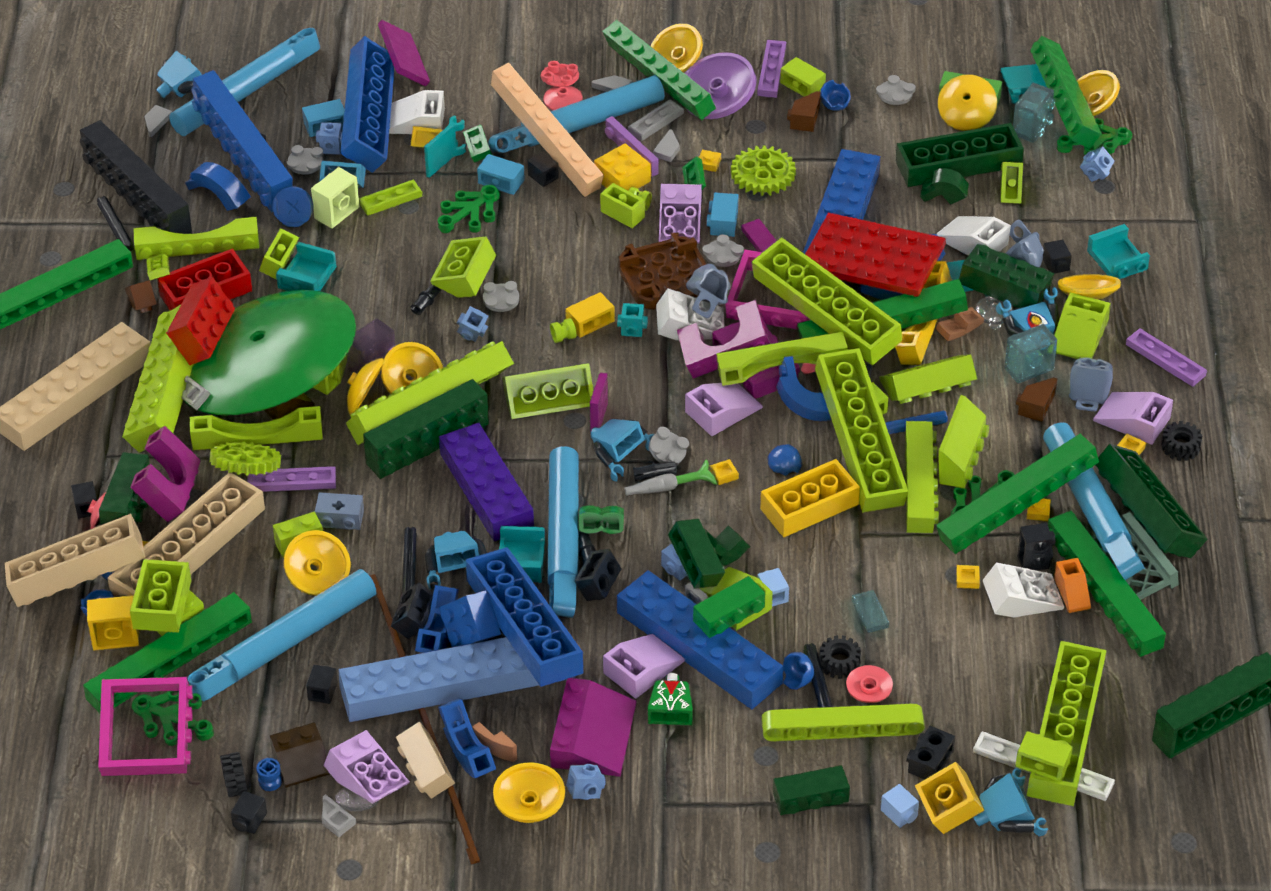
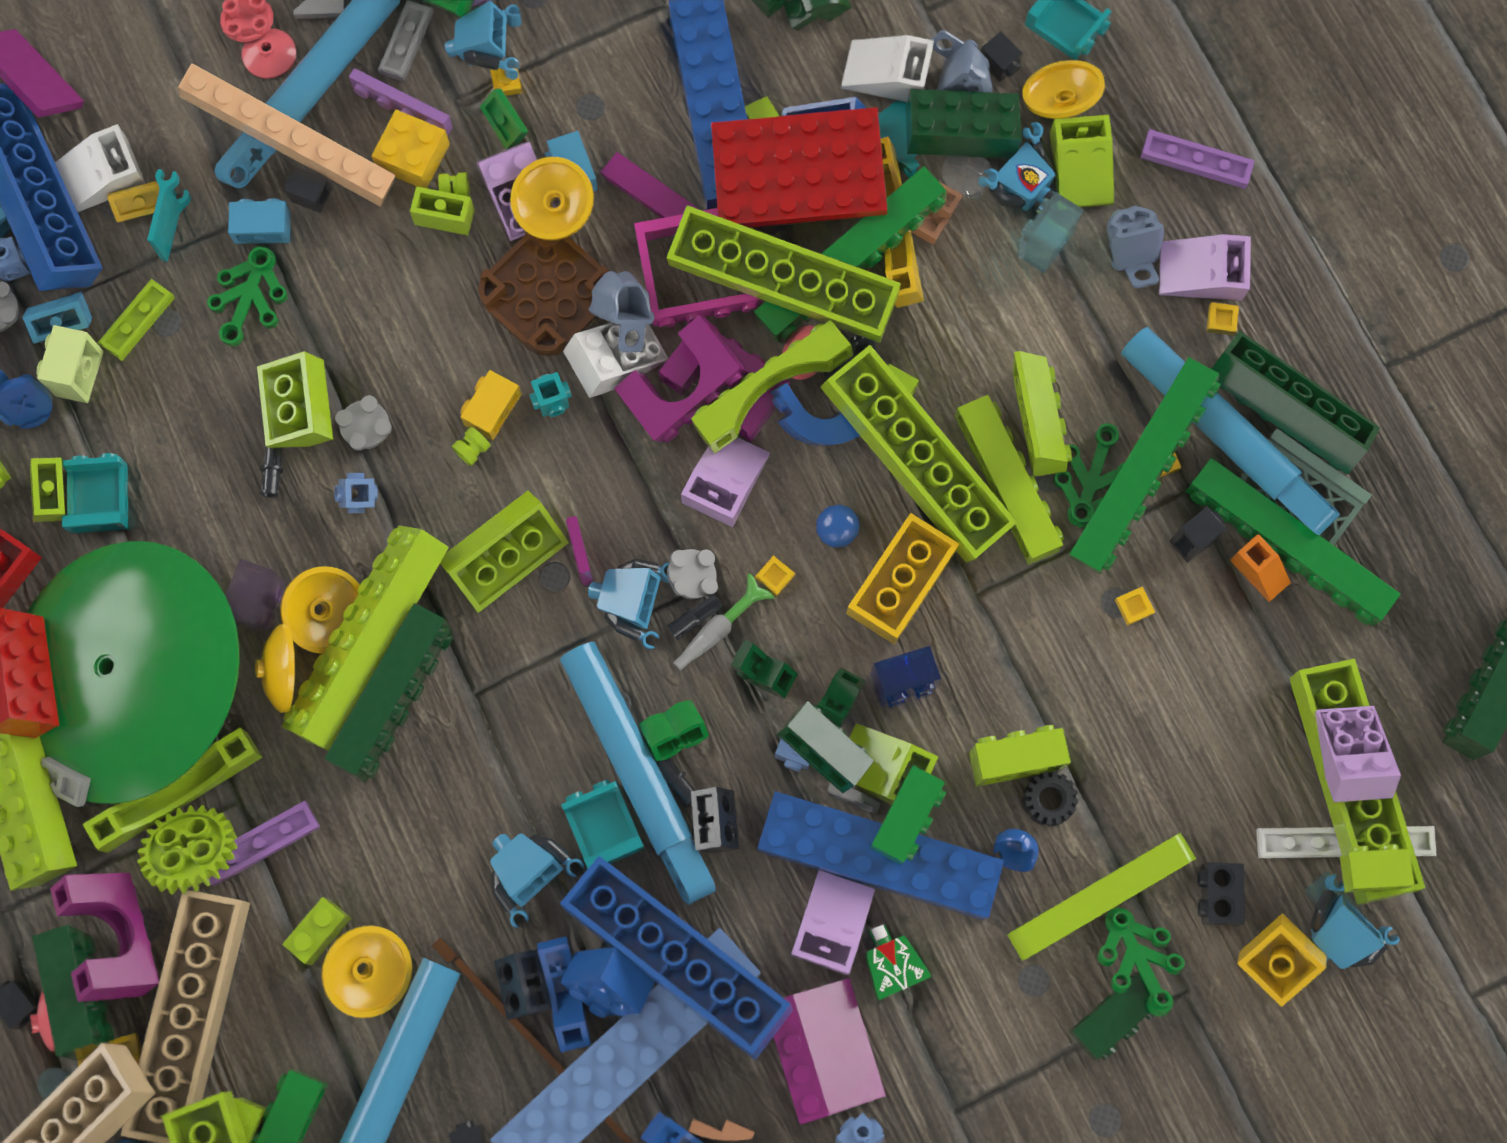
camera: 30 degrees left, 30 degrees up
(340, 510) = (329, 868): sand blue brick -> none
(409, 558) = (473, 902): black axle -> none
(477, 143) = (202, 182): plate -> none
(485, 480) = (503, 734): dark purple brick -> none
(667, 148) = (444, 80): light grey tile -> none
(679, 506) = (763, 671): none -> dark green brick
(697, 217) = (540, 186): none -> yellow dish
(707, 128) = (482, 38): none -> dark azure torso
(723, 252) = (603, 228): light grey piece -> none
(763, 170) = (583, 70): lime gear -> none
(777, 546) = (905, 677): none -> clear blue brick
(777, 584) = (923, 731): light blue brick -> none
(818, 679) = (1046, 849): black axle -> none
(828, 614) = (1019, 755): none -> lime brick
(846, 743) = (1140, 956): none -> green plant
(869, 677) = (1115, 815): coral dish -> none
(870, 611) = (1047, 706): clear light blue tile -> none
(899, 806) = (1225, 988): light blue brick -> none
(900, 425) = (961, 392): blue axle -> none
(929, 377) = (944, 318): lime slope -> none
(1021, 591) = (1206, 599): white slope -> none
(1037, 399) = (1085, 295): reddish brown slope -> none
(1069, 693) = (1356, 754): none -> lavender slope
(1179, 449) = (1284, 270): black tyre -> none

